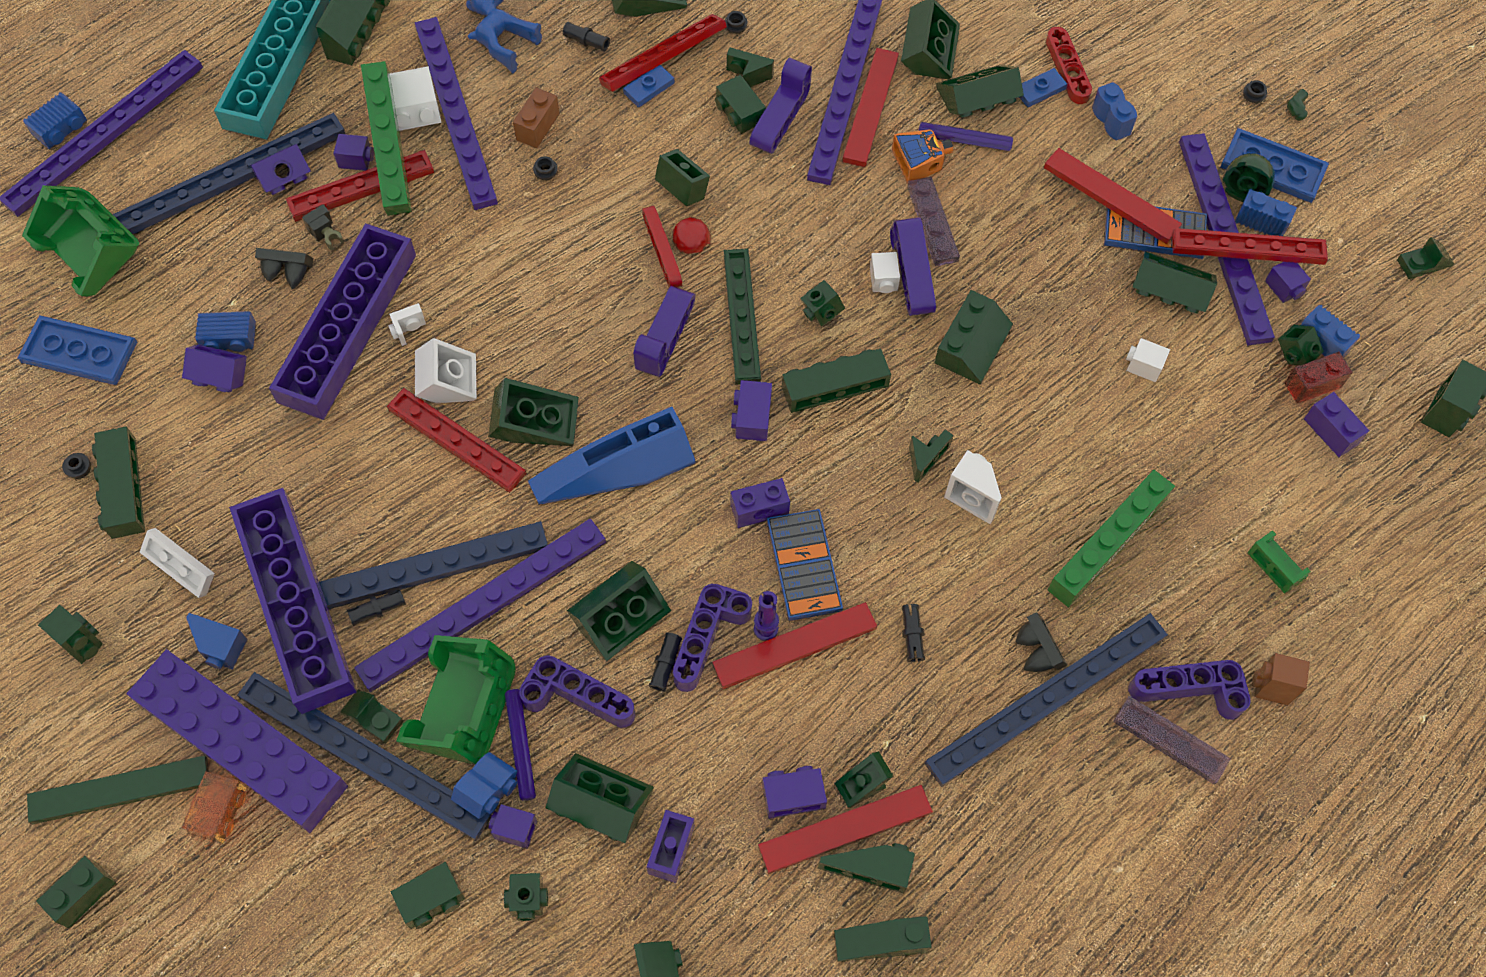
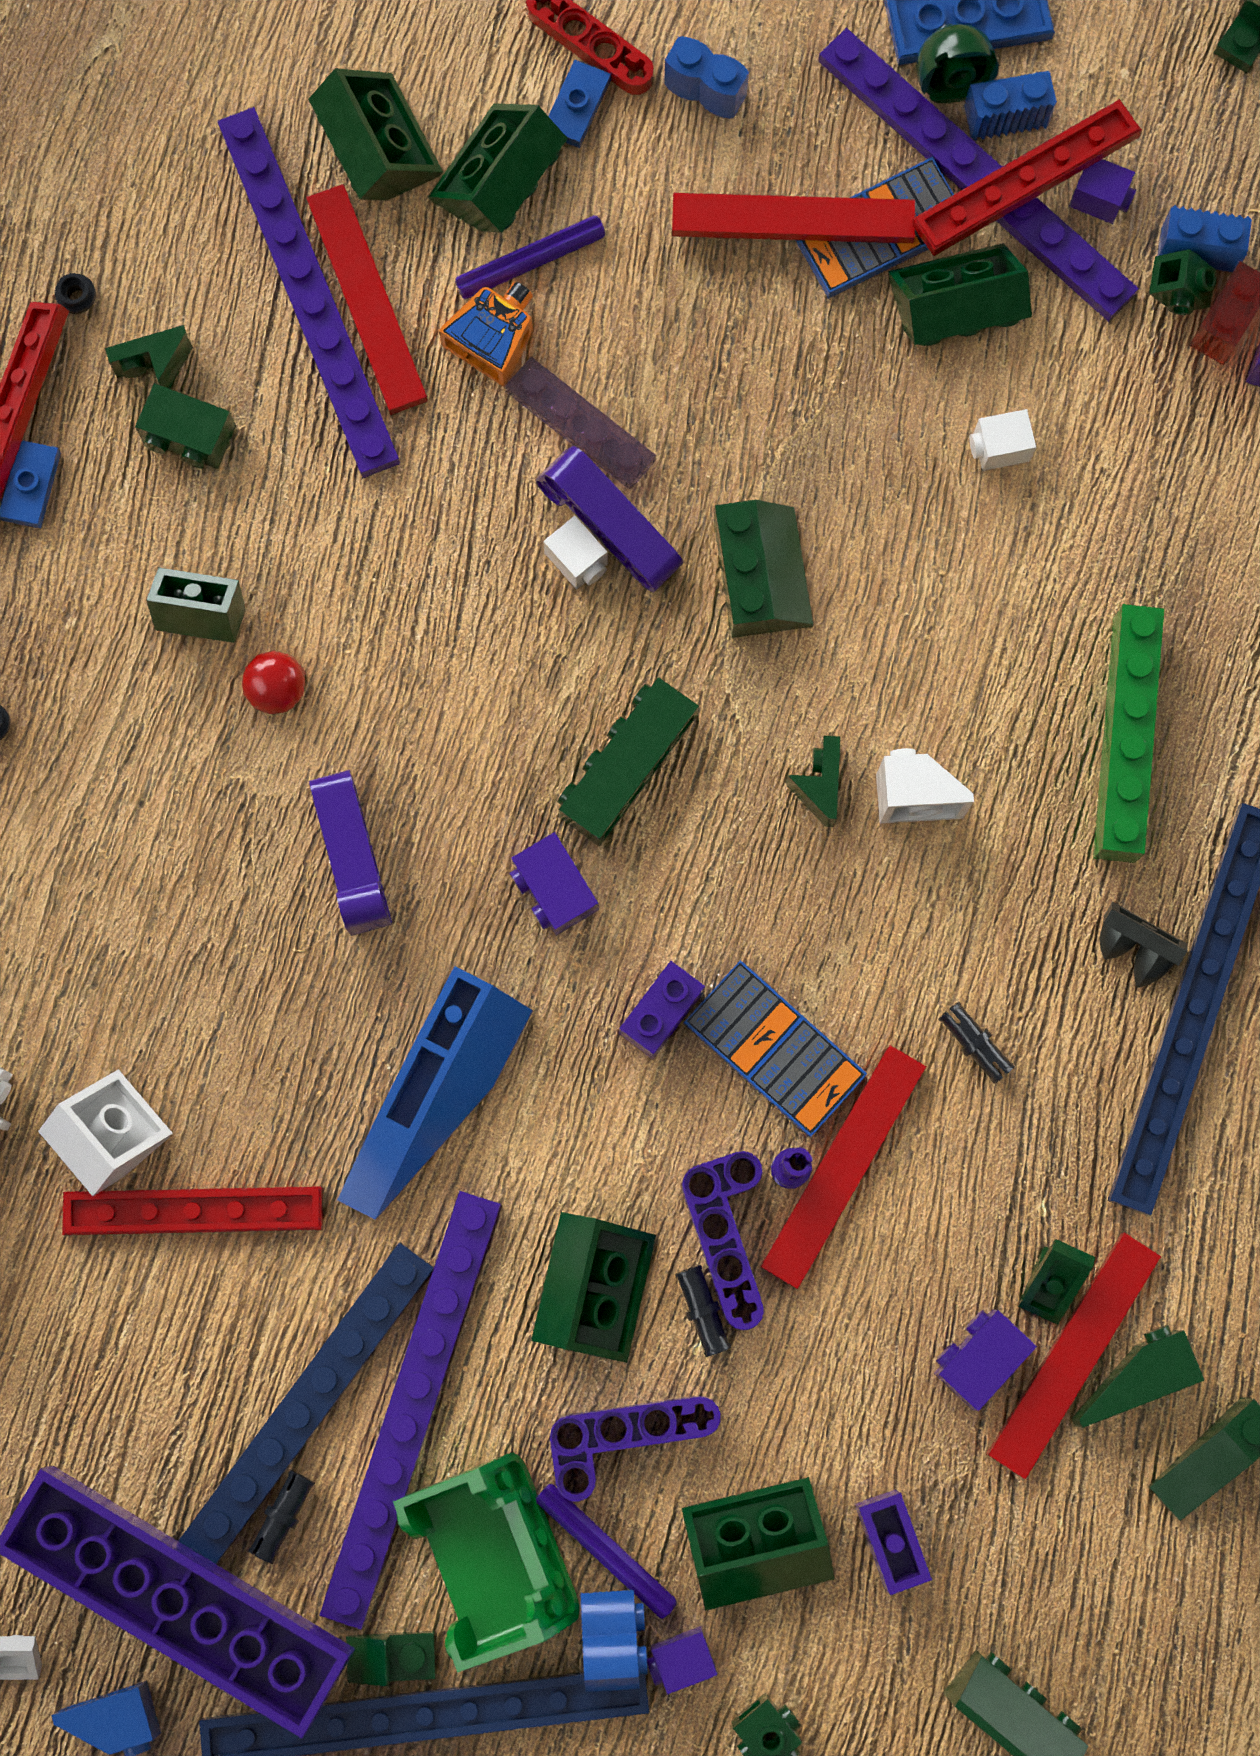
camera: 35 degrees left, 15 degrees up
(532, 414) = (271, 1104): dark green slope -> none
(662, 247) = (248, 729): red beam -> none
(742, 316) = (431, 752): dark green tile -> none
(783, 106) = (249, 392): dark purple beam -> none
(822, 303) = (530, 664): dark green brick -> none

